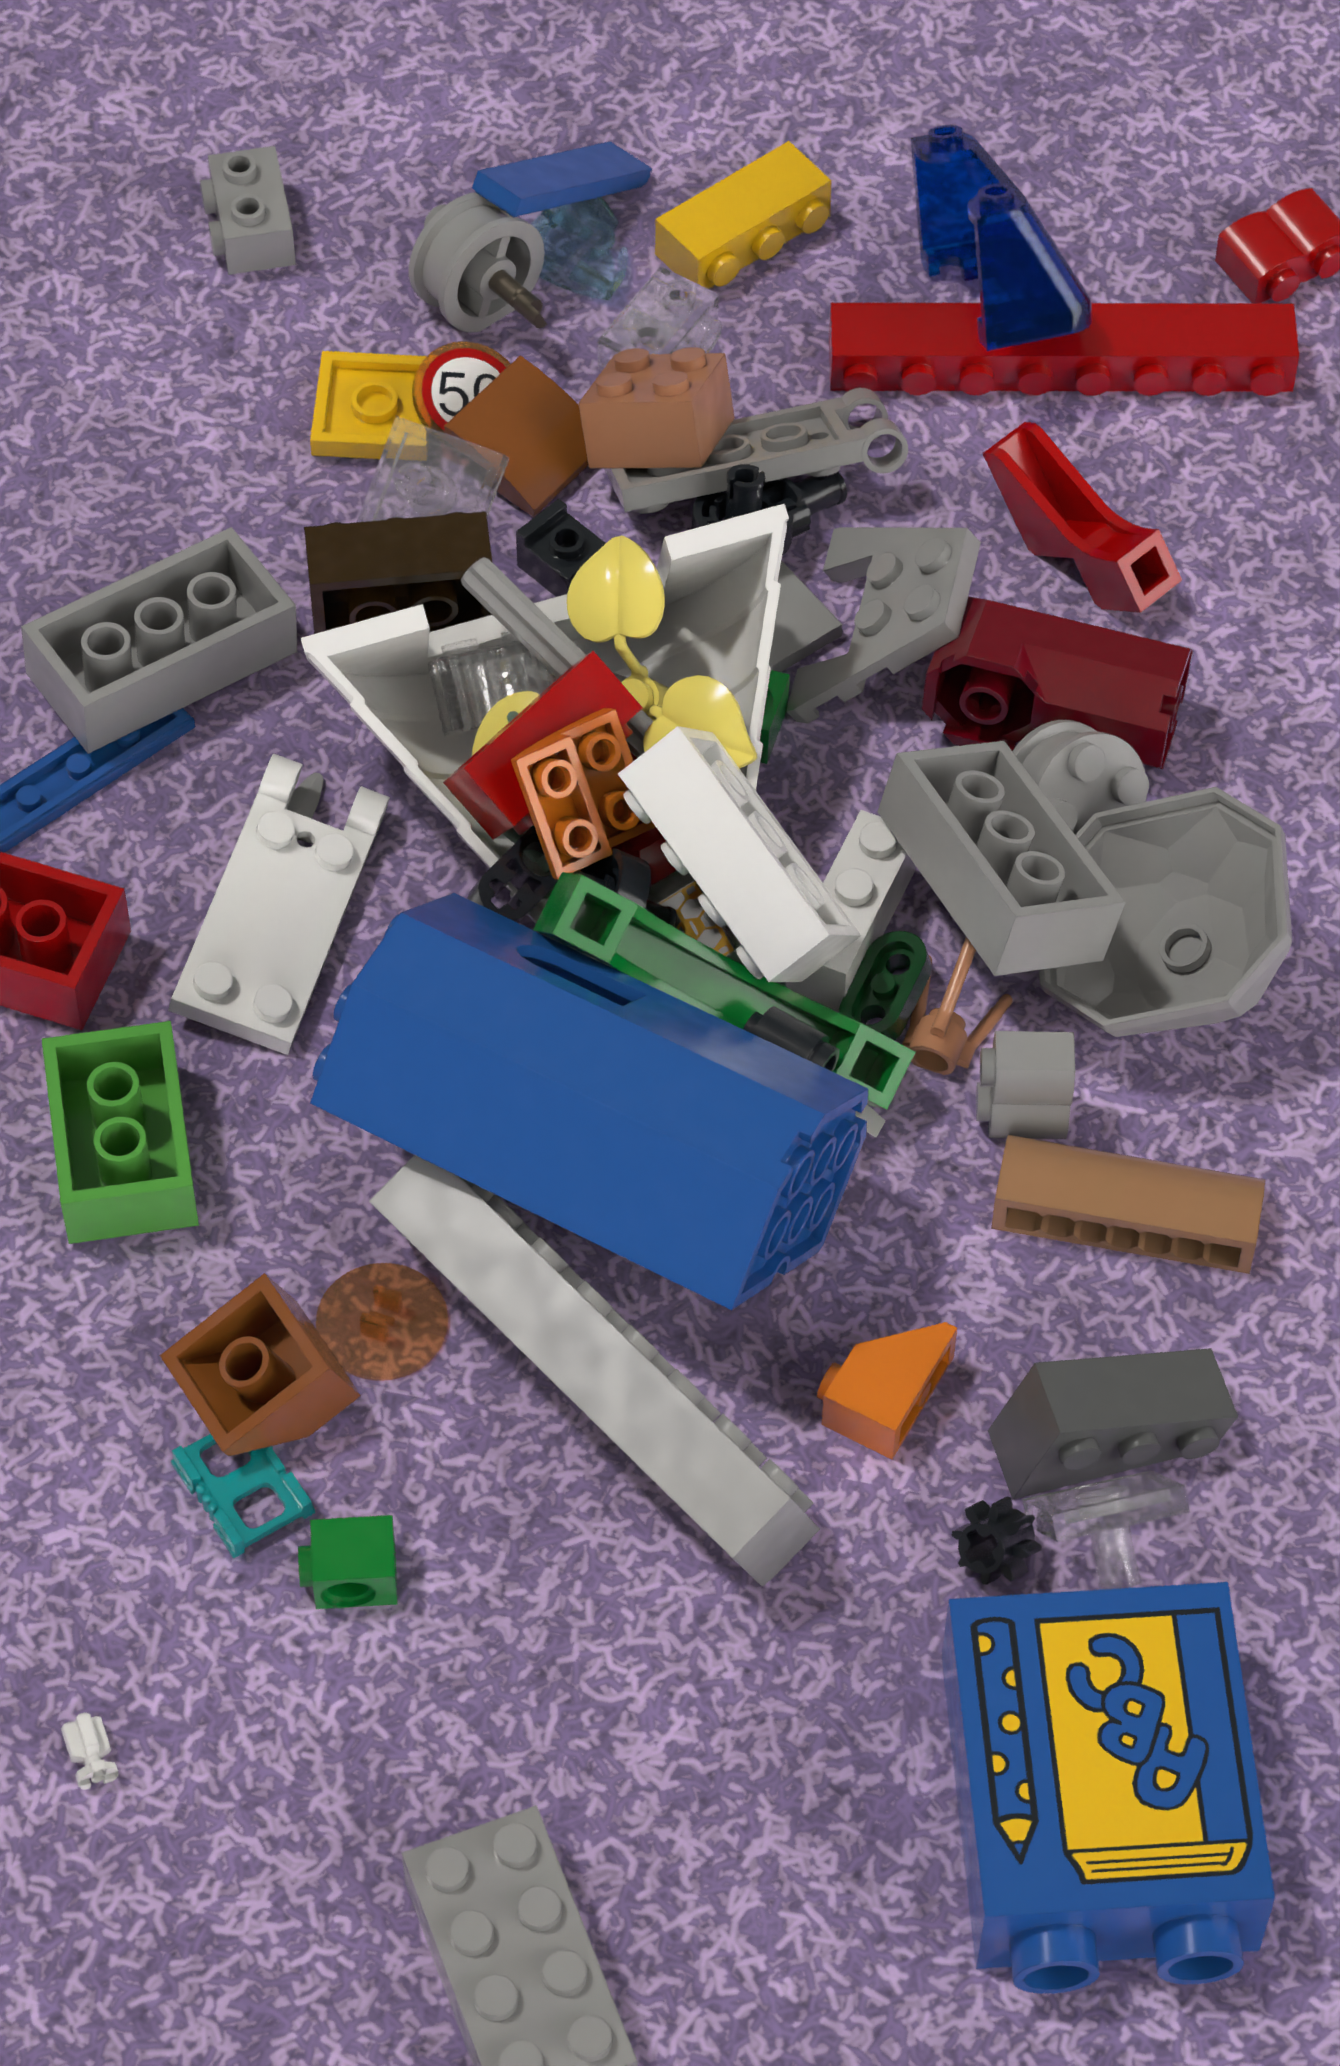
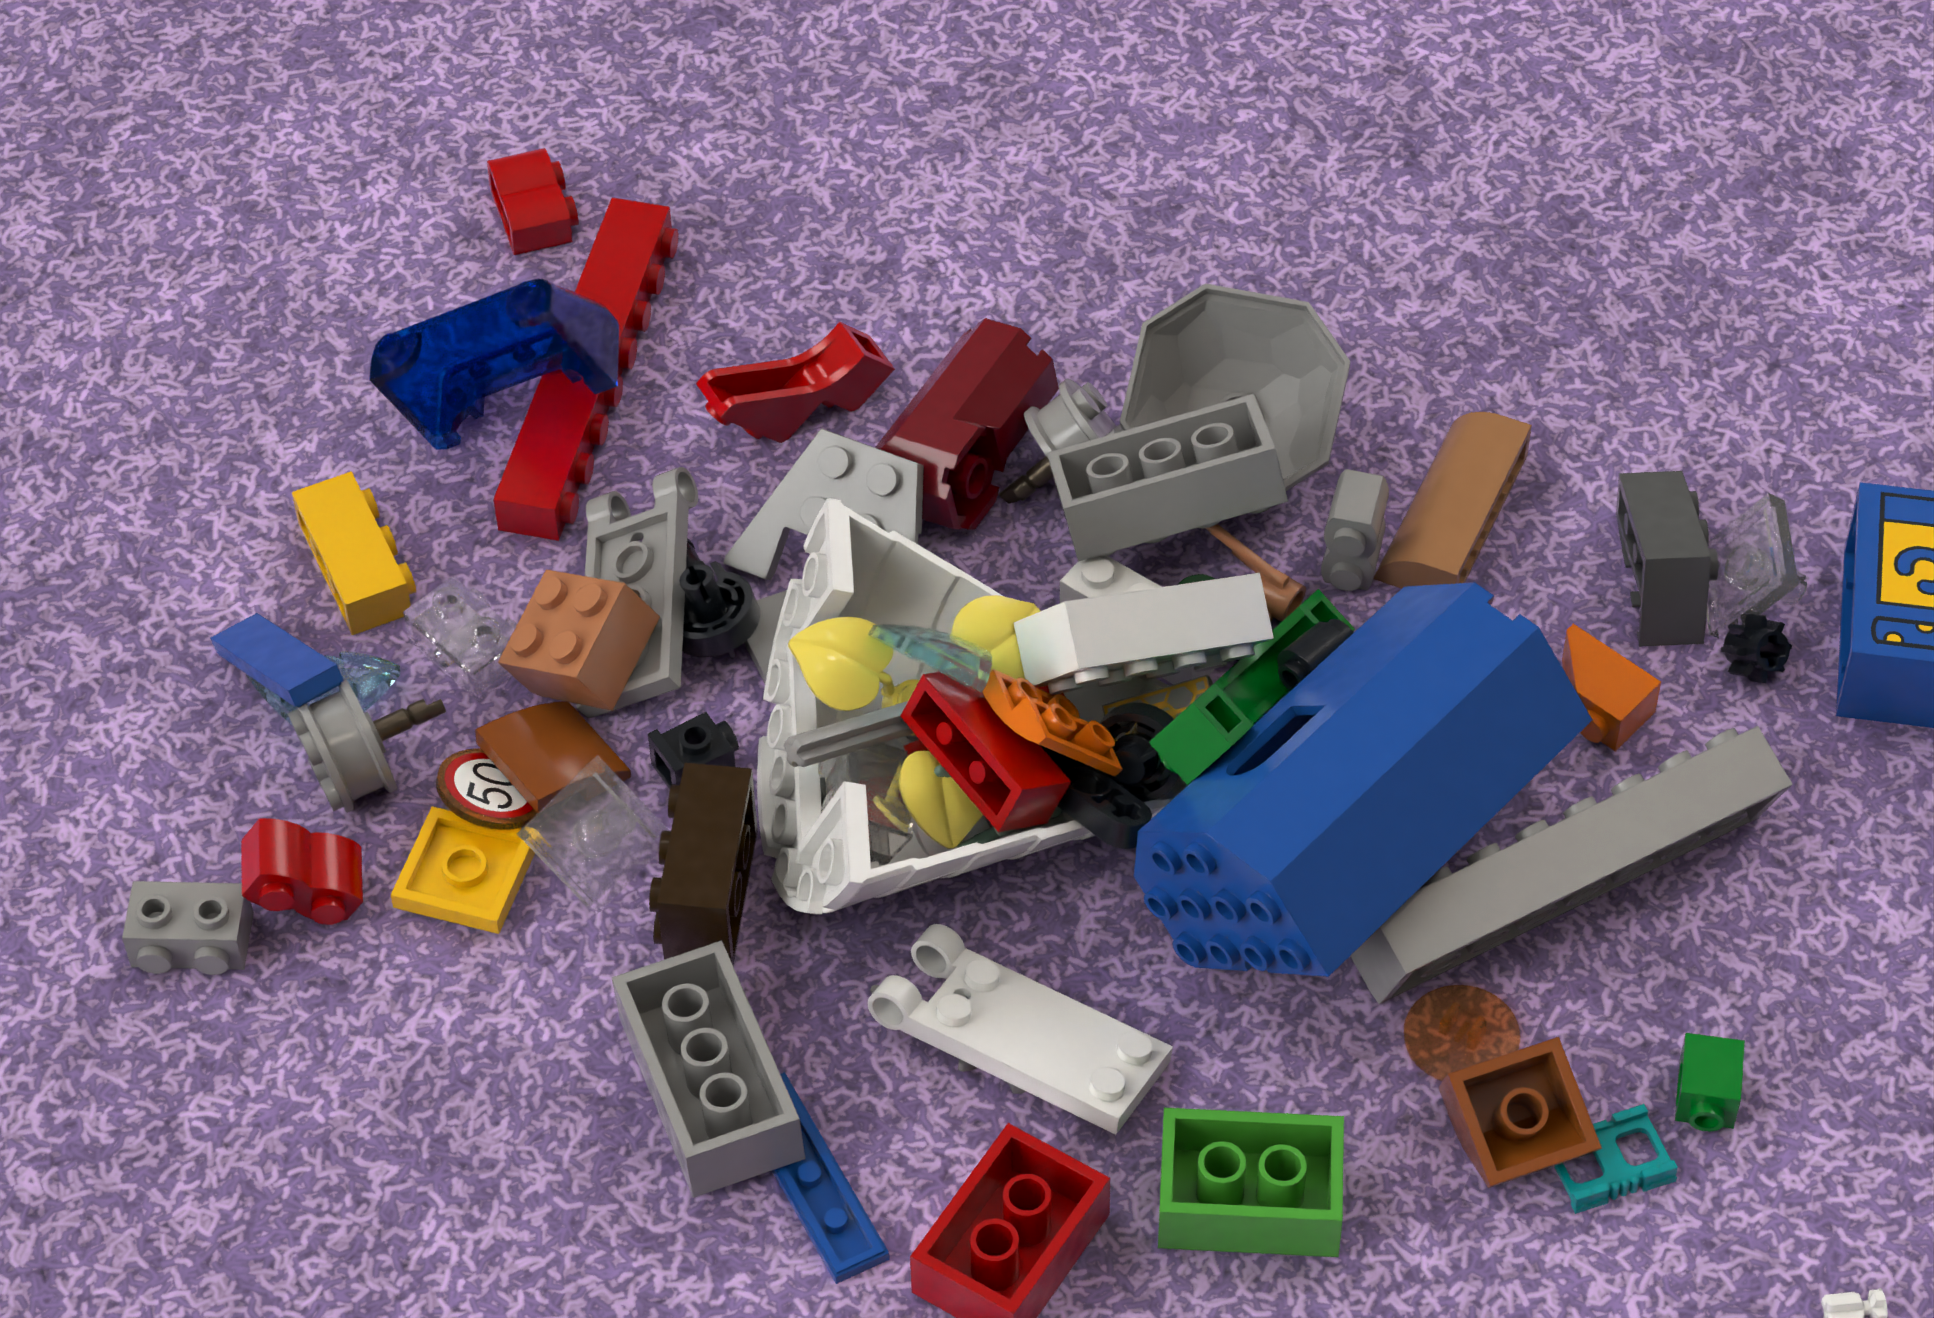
camera: 75 degrees left, 5 degrees down
(321, 270) = (301, 871): none -> red brick
(625, 661) = (942, 651): none -> clear light blue brick

